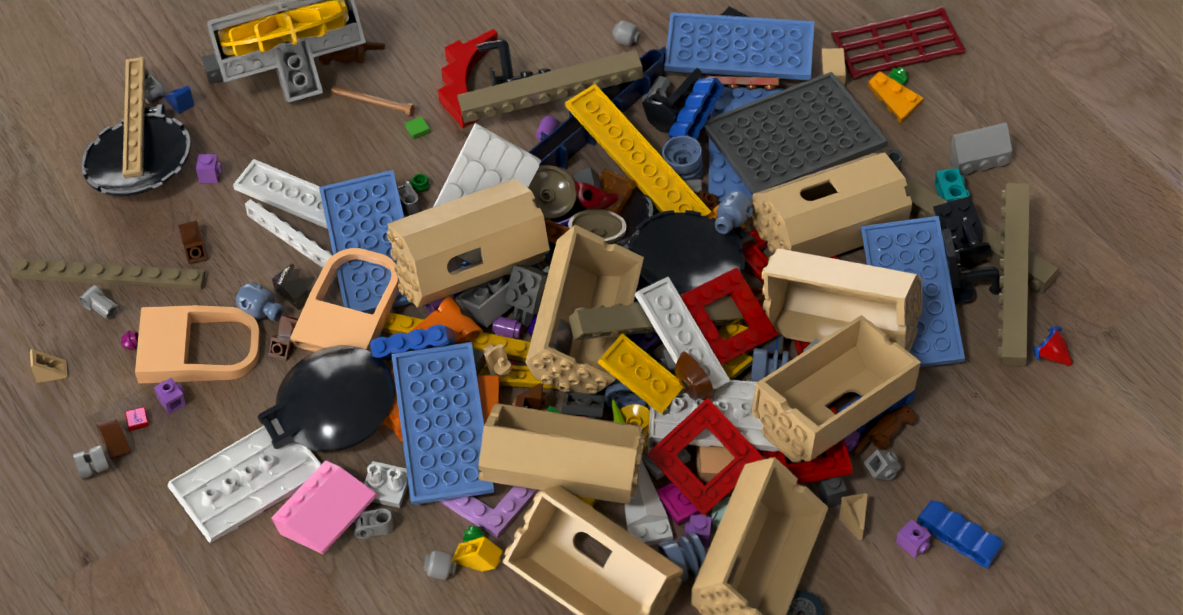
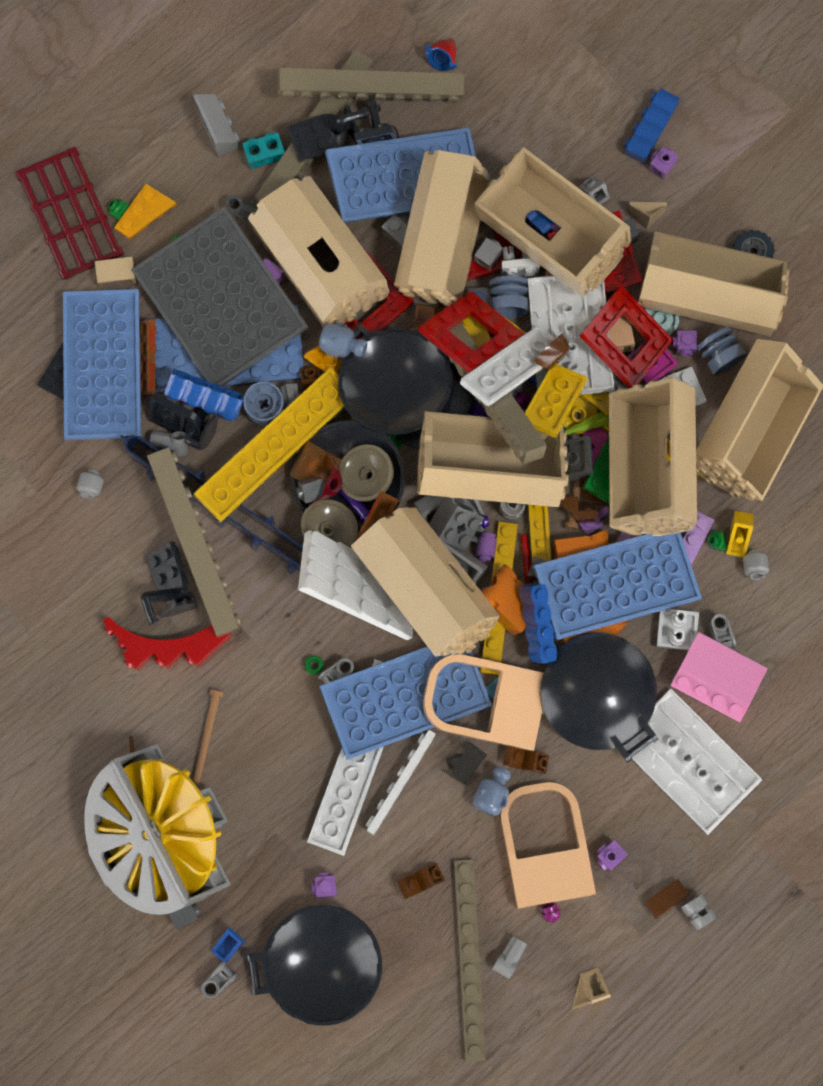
camera: 100 degrees left, 25 degrees up
(134, 118) = (271, 980): tan tile -> none
(136, 418) = (638, 883): tile -> none
(417, 127) = (239, 682): bright green tile -> none
(497, 360) = (543, 541): tan hips -> none
(546, 126) = (231, 546): medium lavender brick -> none

